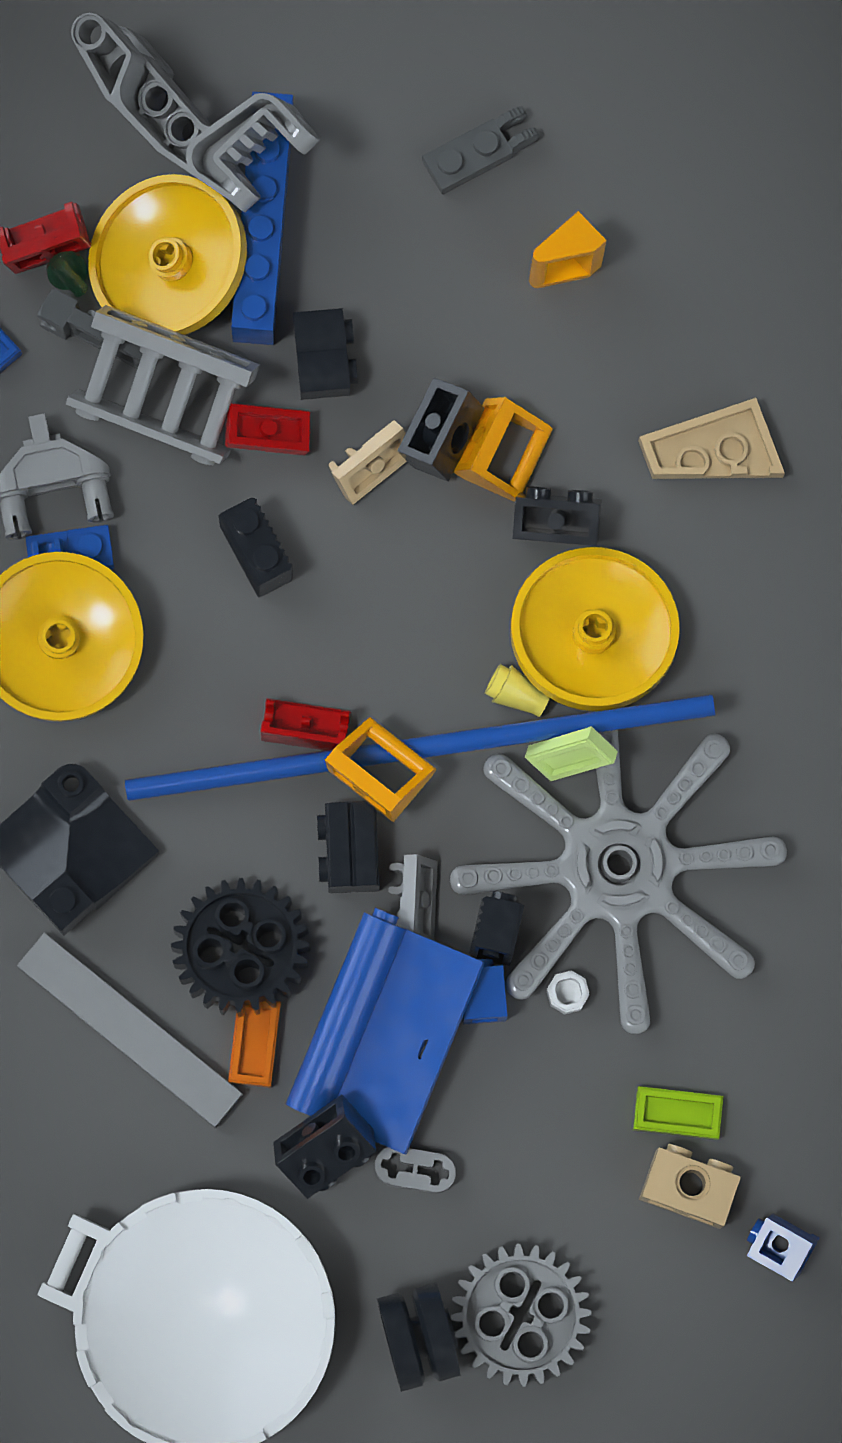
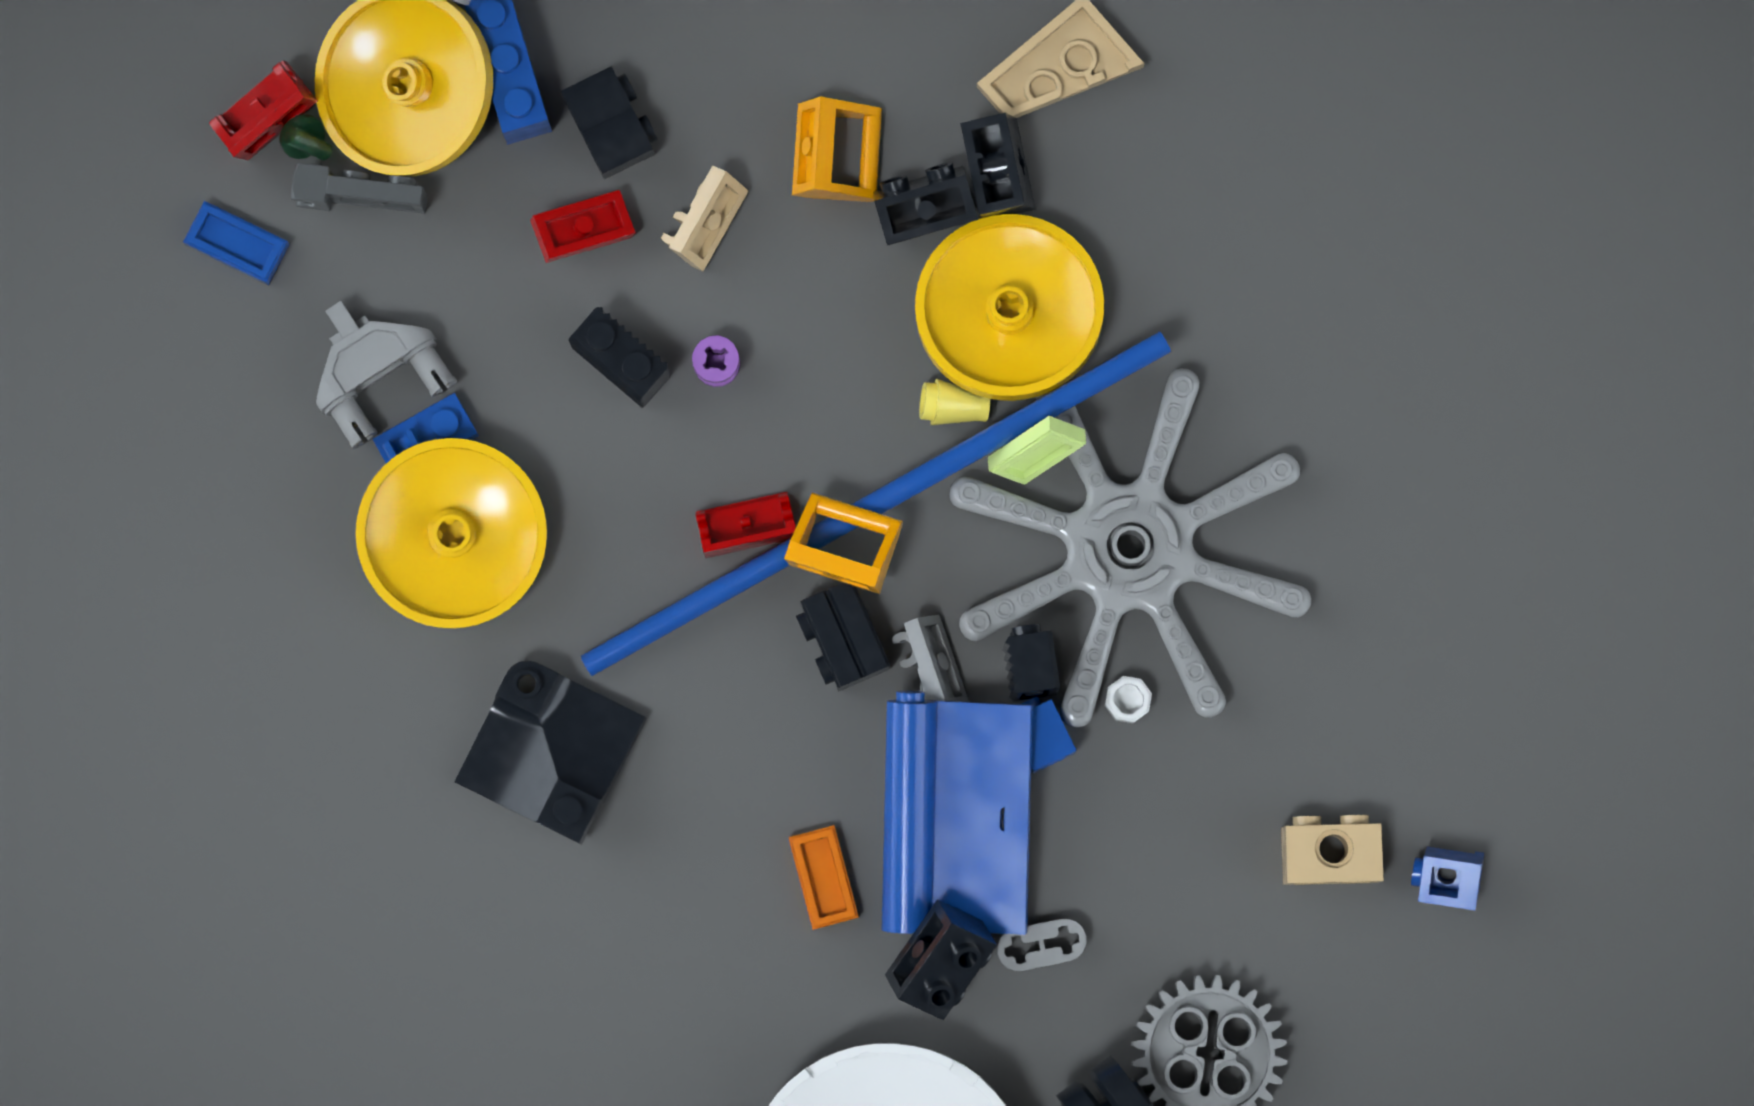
camera: 15 degrees left, 5 degrees up
(129, 1030) = (688, 915): light grey tile -> none
(193, 359) = (429, 182): light grey fence -> none
(219, 978) = (762, 826): black gear -> none
(335, 590) = (721, 368): none -> medium lavender wheel
(441, 429) = (766, 156): black brick -> none
(630, 509) = (997, 165): none -> black brick
(678, 1113) = (1289, 780): lime tile -> none

